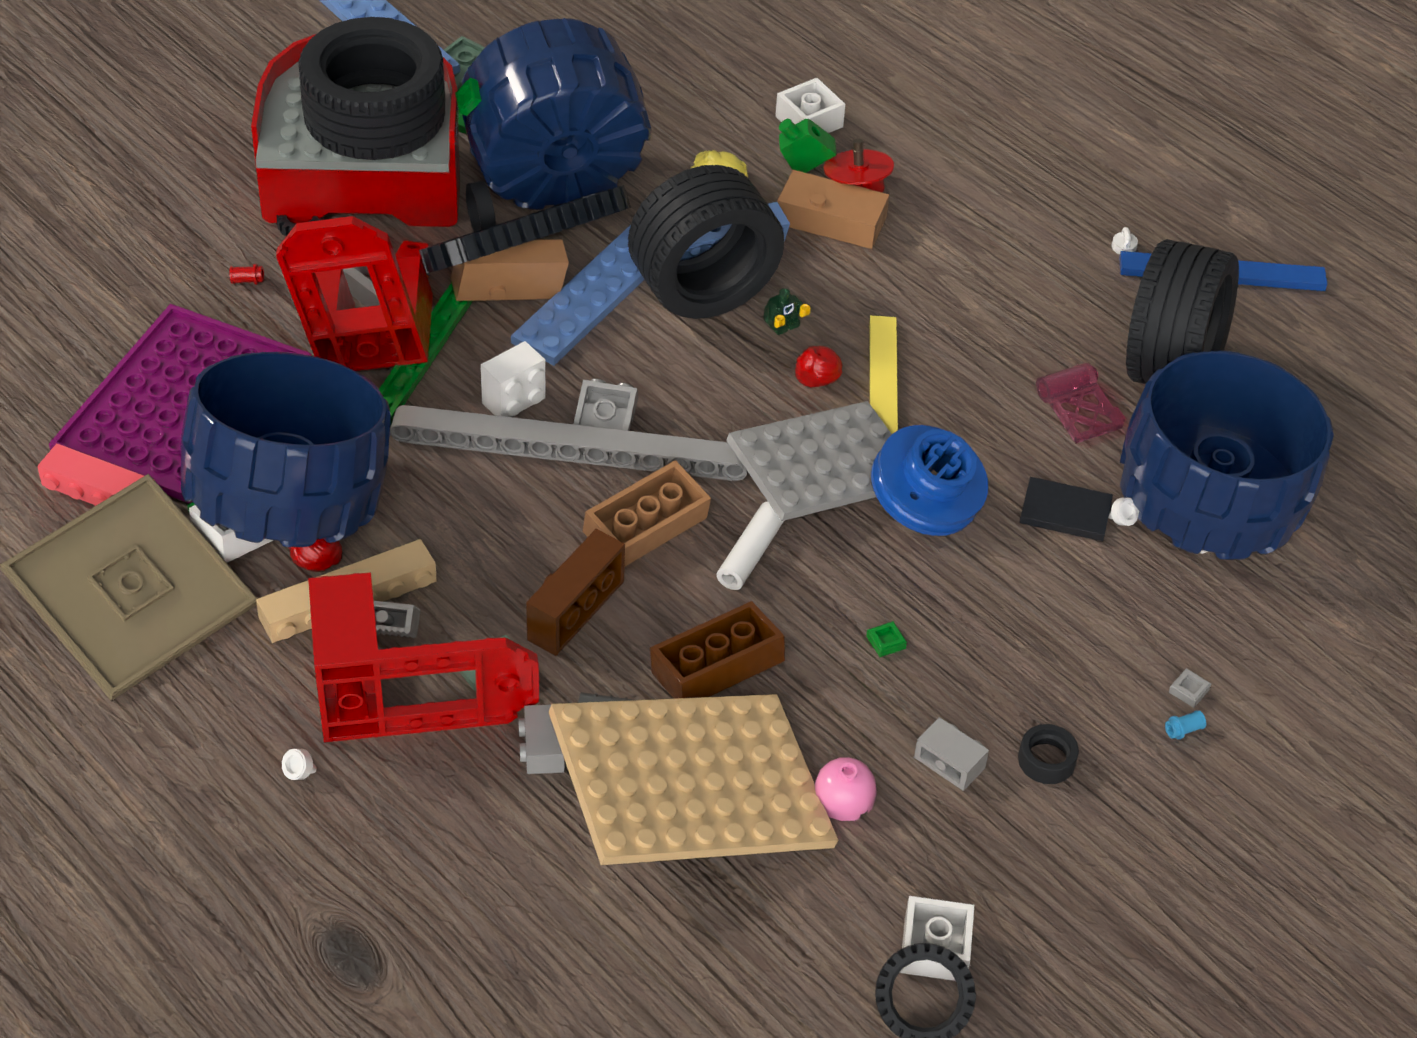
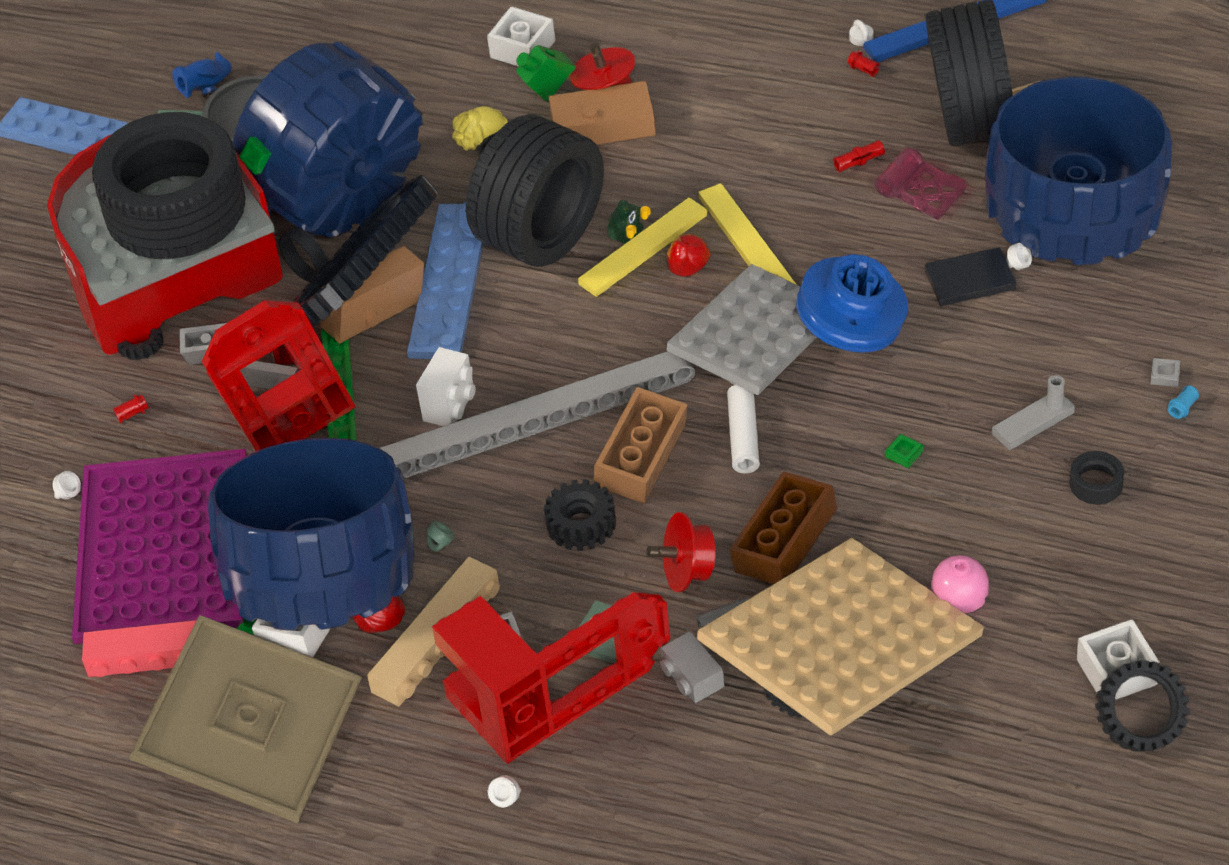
camera: 20 degrees left, 0 degrees up
(144, 313) = (66, 485): none -> white tile
(416, 508) = (440, 533): none -> sand green tile
(510, 18) = (201, 75): none -> blue animal
(542, 536) = (575, 500): none -> black tyre
(575, 592) = (631, 534): reddish brown brick -> none
(606, 405) = (537, 370): light grey plate -> none
(612, 633) = (686, 552): none -> red piece
(784, 341) = (642, 247): none -> light yellow tile
(951, 753) = (1023, 514): light grey brick -> none
(1032, 669) = (1036, 416): none -> light grey piece
(1041, 351) = (859, 156): none -> red pin
(1104, 266) = (861, 62): none -> red pin

